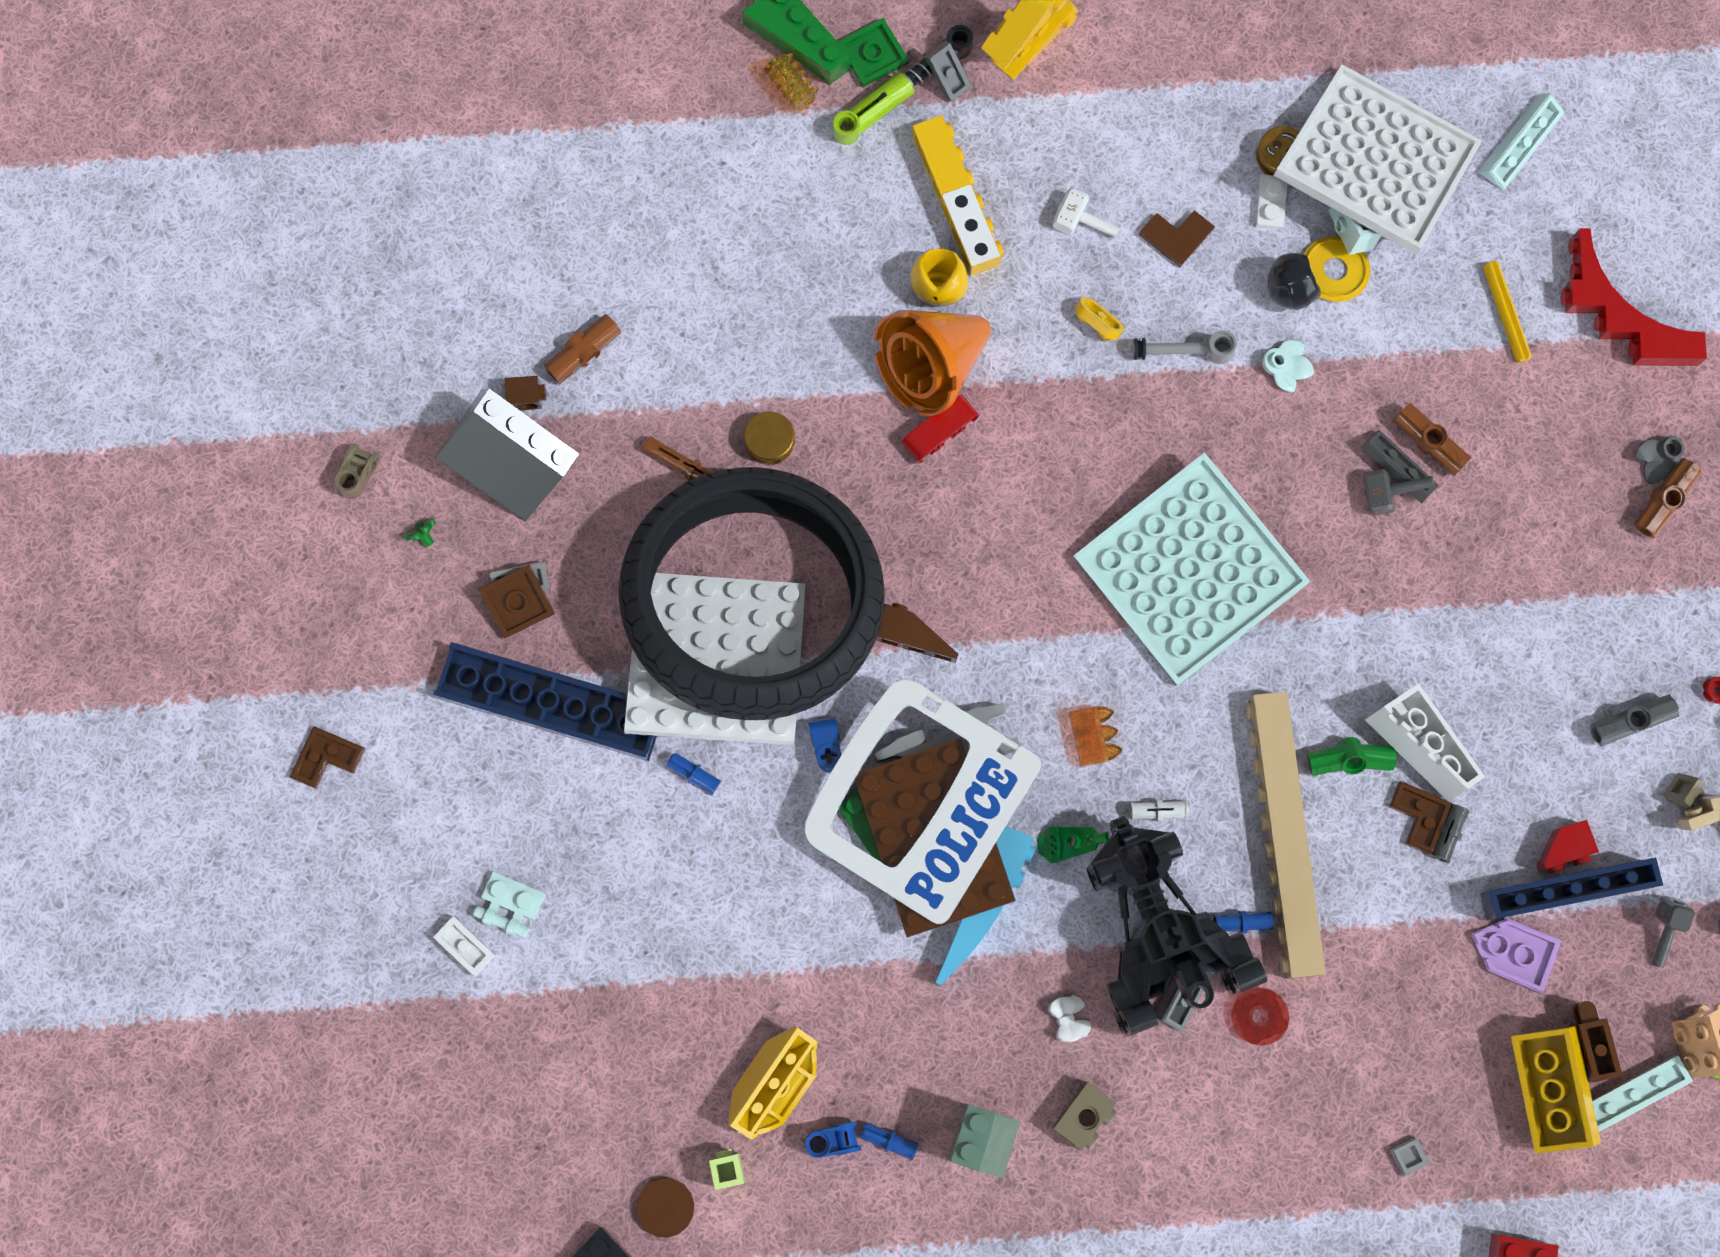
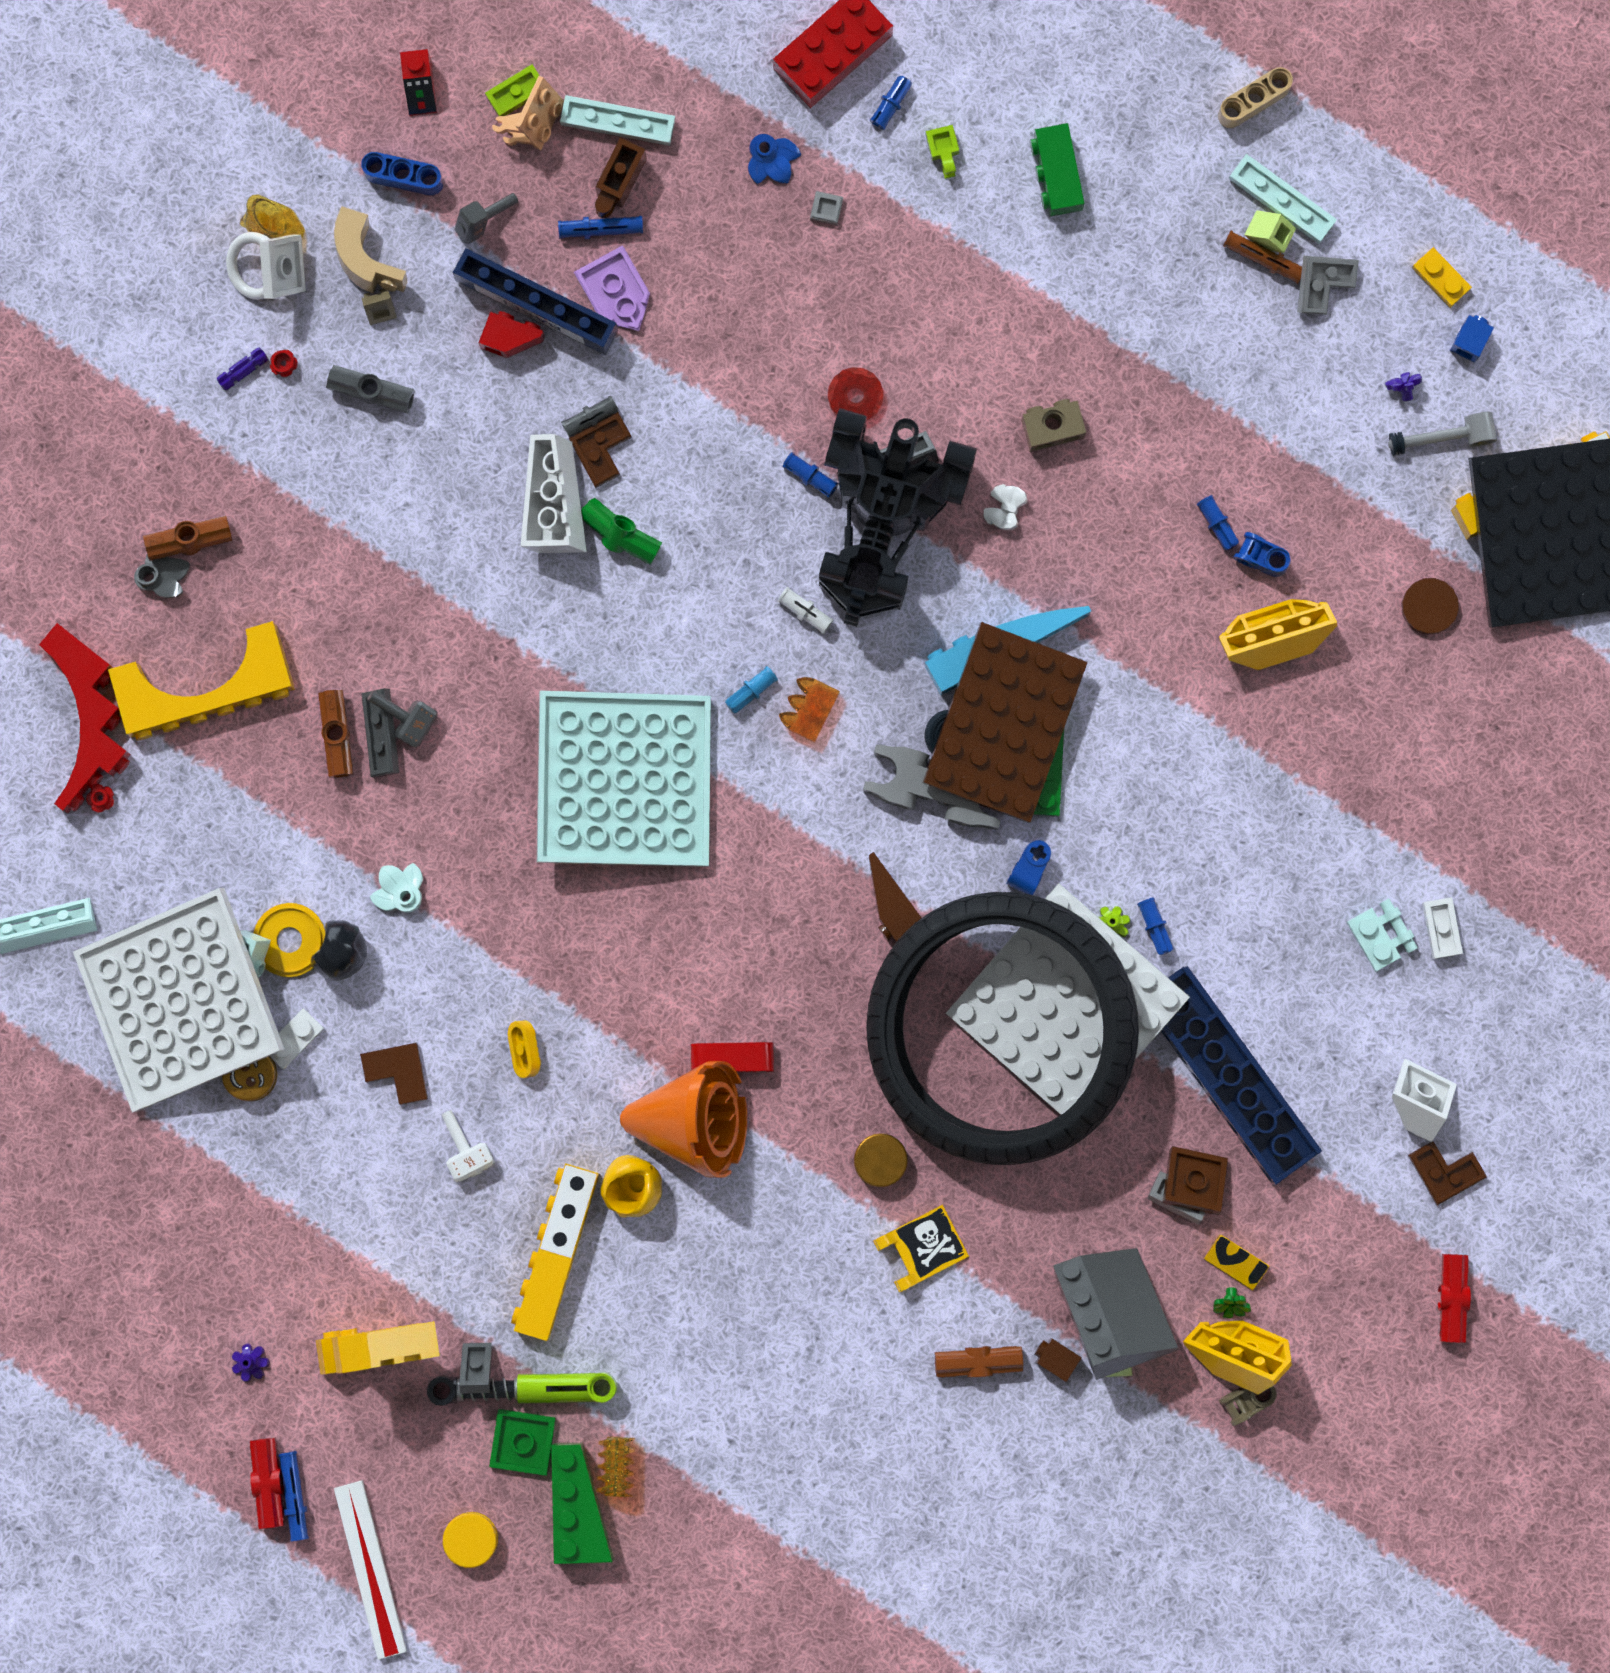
camera: 140 degrees left, 5 degrees up
(250, 664) = (1454, 1298): none -> red piece
(383, 797) = (1422, 1099): none -> white slope
(384, 498) = (1241, 1353): none -> yellow wedge
(440, 567) = (1236, 1262): none -> slope
(674, 459) = (981, 1228): dark orange pin -> none
(687, 402) = (924, 1246): none -> flag
(726, 1169) = (1362, 595): yellowish green brick -> none
(729, 756) = (1115, 915): none -> lime plant
(963, 828) = (977, 708): white door -> none
(983, 1141) = (1148, 466): sand green slope -> none
(1056, 843) = (908, 647): green piece -> none
(1141, 348) = (509, 996): light grey piece -> none
(1150, 715) = (751, 690): none -> dark azure axle
(1286, 835) = (720, 515): tan brick -> none
(1482, 1162) = (774, 162): none -> blue plate
(1507, 311) = (179, 792): yellow axle -> none
(1525, 439) = (260, 676): none -> yellow arch
(1554, 268) = (106, 803): none -> red plate
(1556, 1090) = (677, 167): yellow brick -> none
(1581, 985) = (570, 228): none -> blue pin

